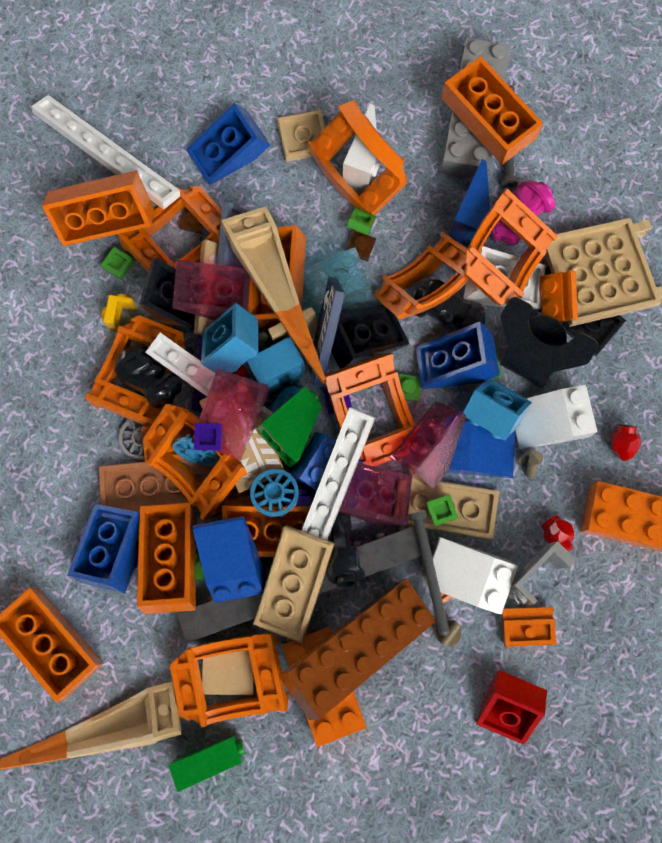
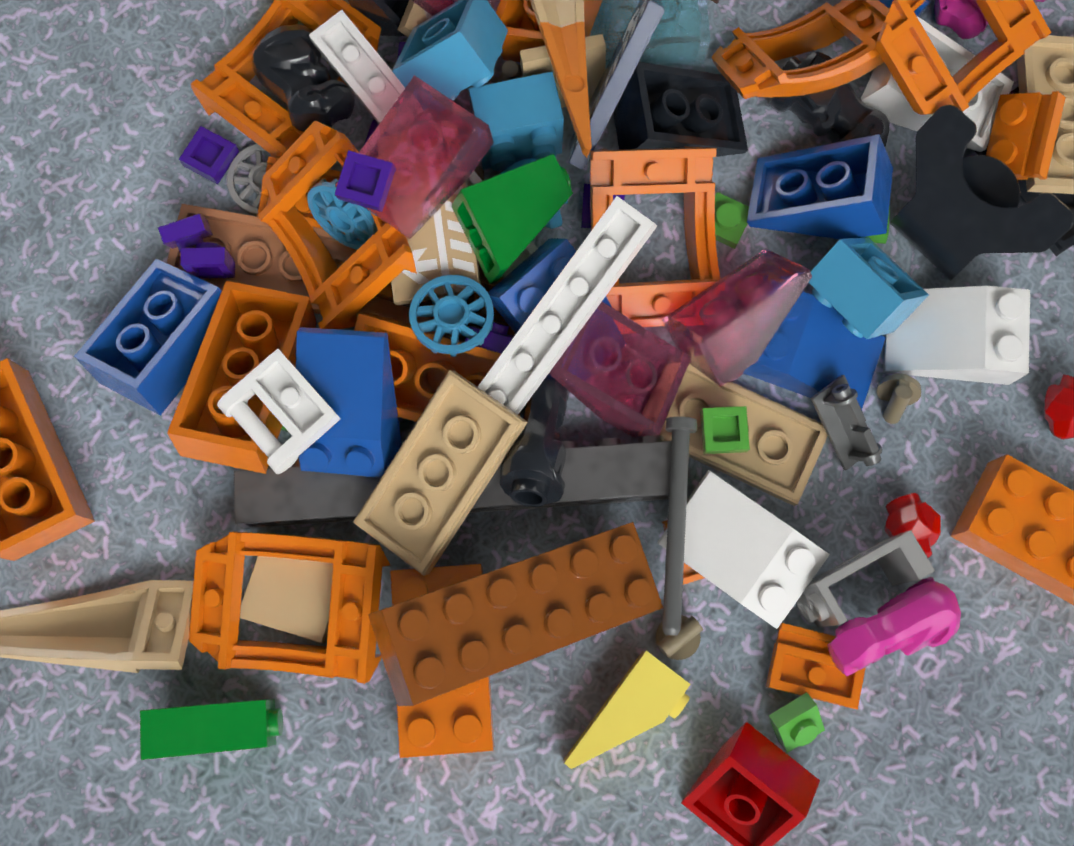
camera: 15 degrees right, 0 degrees up
(105, 433) = (209, 155): none -> dark purple plate
(108, 486) = (185, 232): none -> dark purple plate
(125, 497) = (208, 261): none -> dark purple plate
(201, 569) = (290, 401): none -> white plate
(436, 679) = (637, 704): none -> light yellow slope
(507, 487) = (846, 424): none -> dark grey hinge
(526, 661) = (797, 723): none -> bright green plate
(569, 590) = (910, 621): none -> dark pink animal

